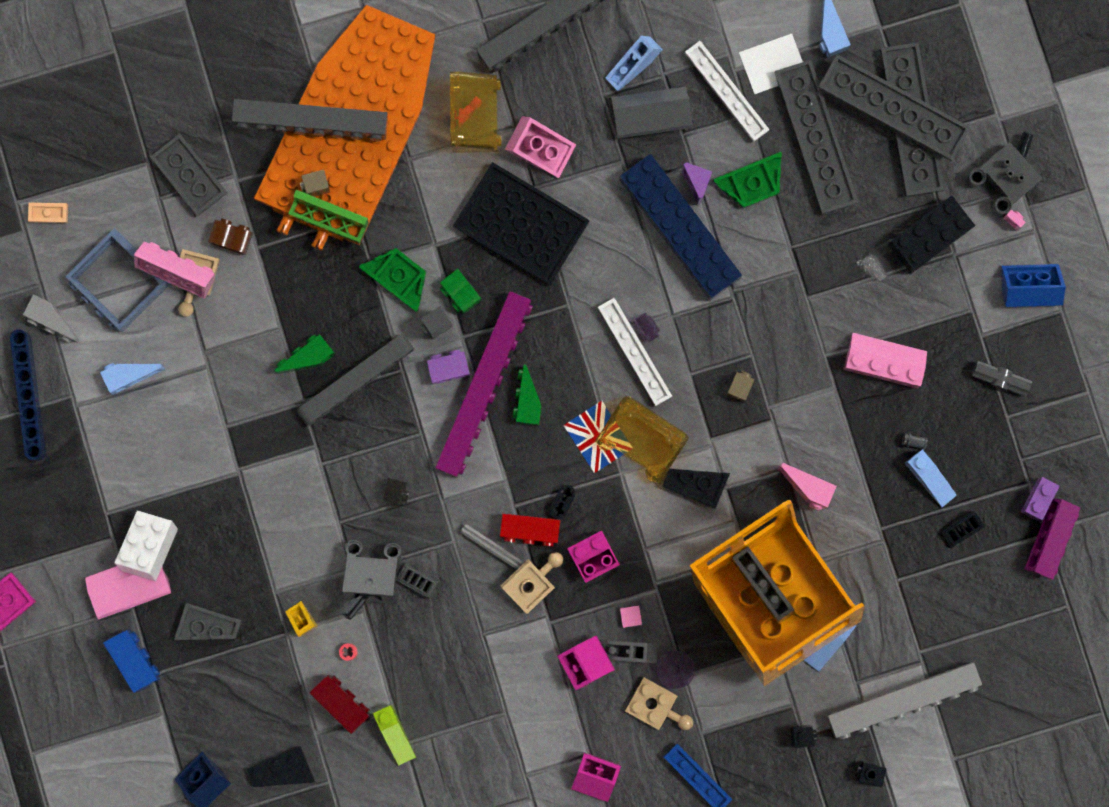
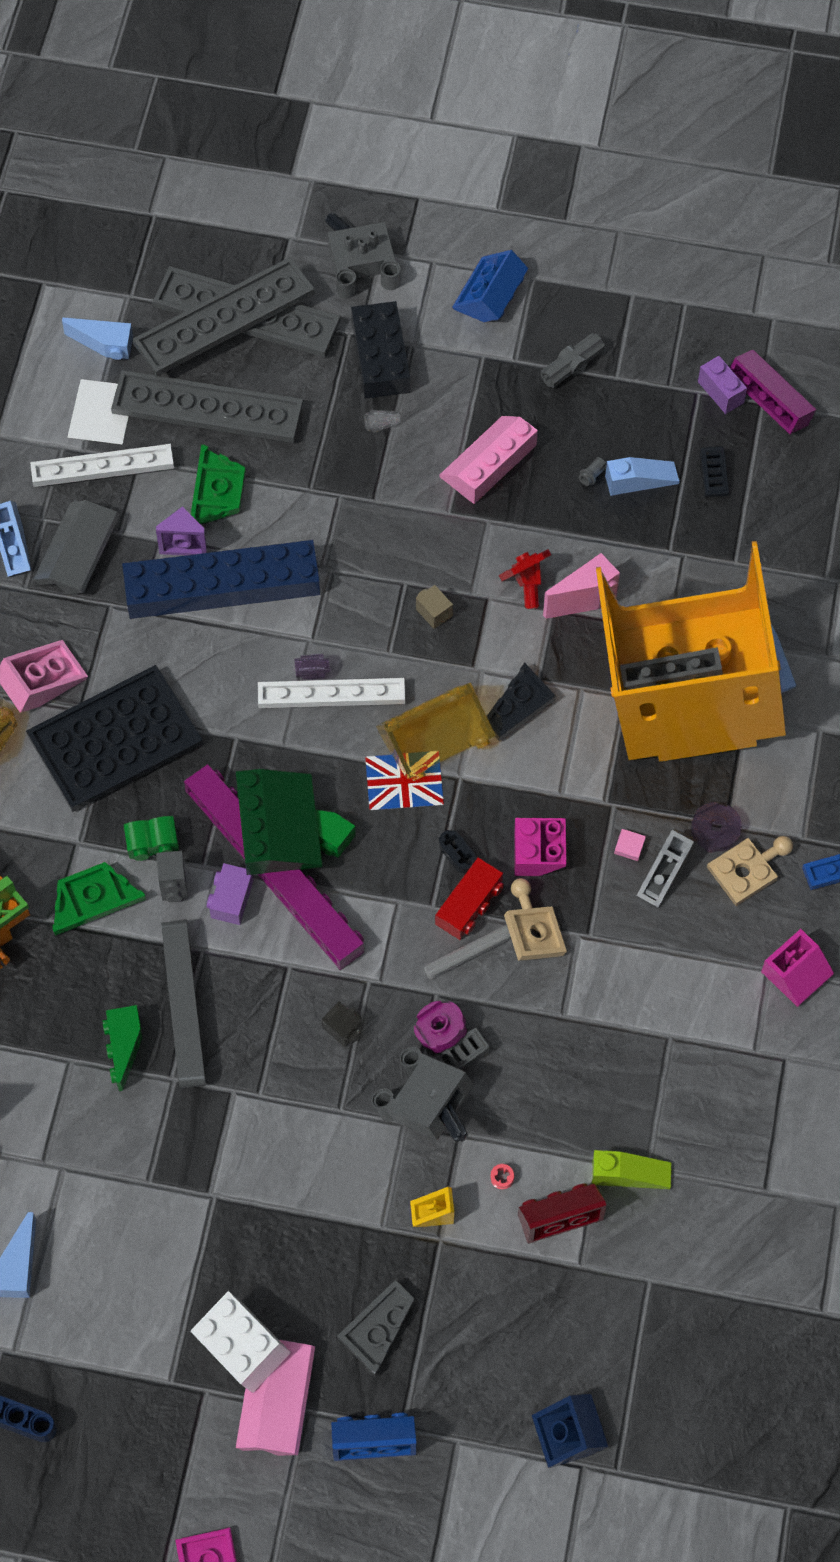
camera: 65 degrees left, 20 degrees down
(282, 770) = (605, 1327): black wing -> none
(429, 568) = (443, 1038): none -> magenta plate
(511, 372) = (278, 821): none -> dark green slope
(586, 663) = (659, 911): dark pink slope -> none
(801, 437) = (528, 576): none -> red piece
(1015, 219) = (412, 270): bright pink plate -> none

